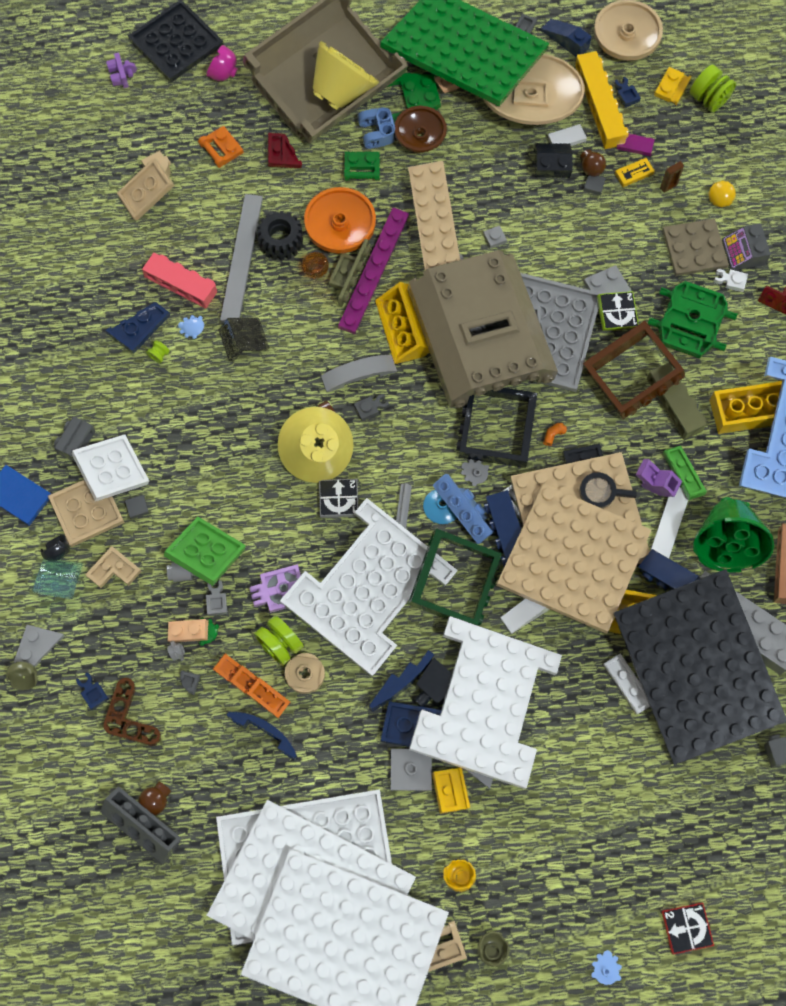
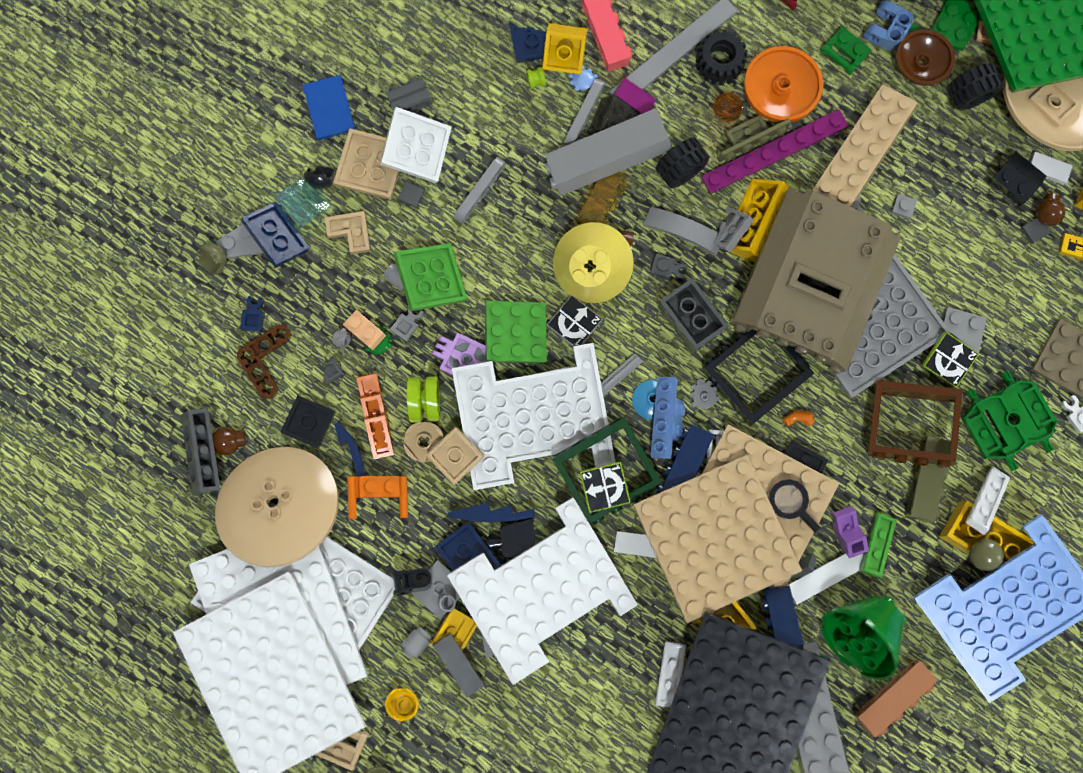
camera: 40 degrees right, 10 degrees up
(57, 617) = (275, 234): none -> plate
(162, 314) = (564, 48): none -> yellow slope
(186, 462) = (479, 190): none -> light grey beam
(204, 733) = (308, 422): none -> black plate
(215, 348) = (585, 111): none -> light grey beam
(242, 309) = (634, 96): none -> magenta tile
(258, 359) = (607, 152): none -> light grey brick
(258, 828) = (292, 527): none -> tan dish
(281, 394) = (603, 199): none -> clear yellow brick
(301, 733) = (377, 488): none -> orange plate
(302, 539) = (515, 332): none -> bright green plate
(318, 325) = (682, 162): none -> black tyre
(337, 661) = (455, 456): none -> tan tile
(383, 781) = (409, 581): none -> black piece
(393, 342) = (733, 229): none -> light grey wing
(419, 423) = (692, 316): none -> dark grey brick
(428, 770) = (450, 603): none -> light grey hinge
(429, 822) = (416, 642): none -> light grey brick
(465, 589) = (604, 487): none -> tile
(471, 121) = (975, 86): none -> black tyre
(474, 809) = (458, 664): none -> dark grey tile
(651, 524) = (807, 565): none -> dark grey tile
(727, 380) = (988, 500): none -> white tile
(759, 415) = (986, 554): none -> olive hair

